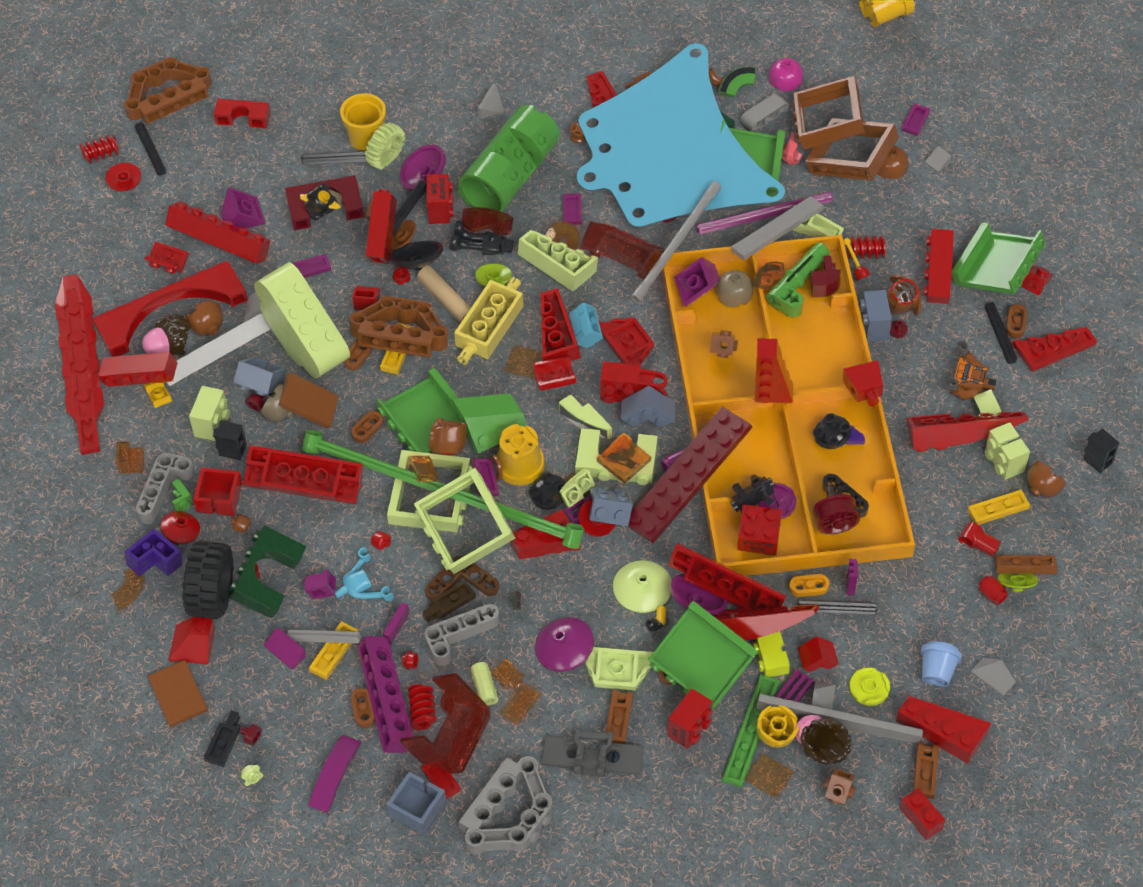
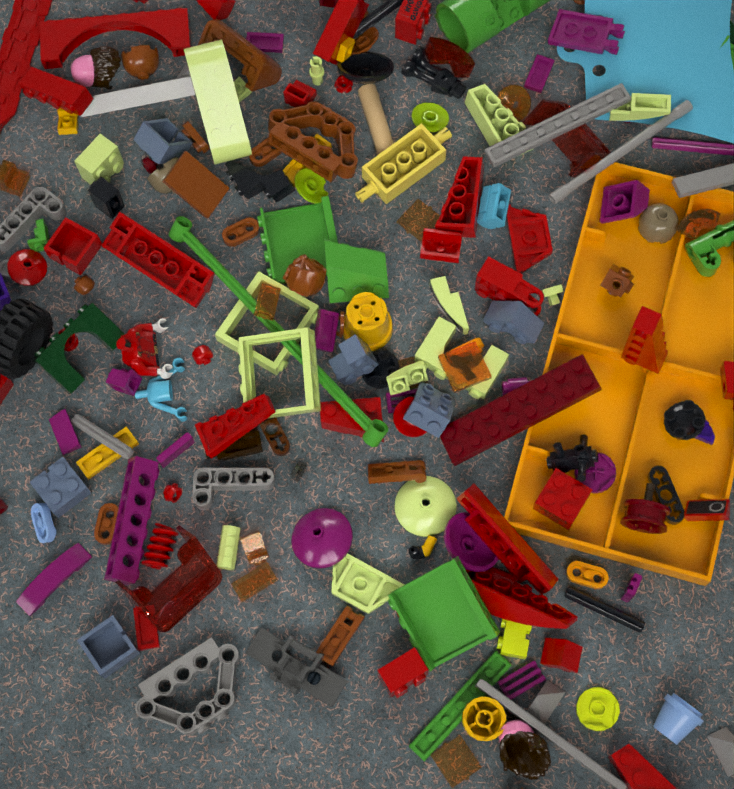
camera: 25 degrees right, 15 degrees up
(292, 365) = (199, 143): none -> dark orange plate
(302, 731) = (43, 522): none -> light blue plate
(305, 693) = (60, 487): none -> sand blue piece
(321, 280) = (258, 66): none -> dark orange windscreen
(325, 553) = (141, 350): none -> red torso
(357, 383) = (250, 183): none -> black arch
(374, 271) = (316, 71): none -> yellowish green pin
(392, 244) = (345, 49): none -> yellow tile
(413, 366) = (310, 185): none -> lime dish
(439, 582) = (226, 429): none -> red wing
(524, 490) = (353, 360): none -> sand blue brick
(598, 160) = (585, 32): none -> magenta tile
(604, 567) = (397, 472): none -> dark orange plate
(611, 239) = (557, 125): none -> light grey tile
(671, 373) = (551, 294): none -> yellowish green tile
(674, 201) = (642, 107): none -> yellowish green slope
(885, 492) = (707, 510): none -> slope

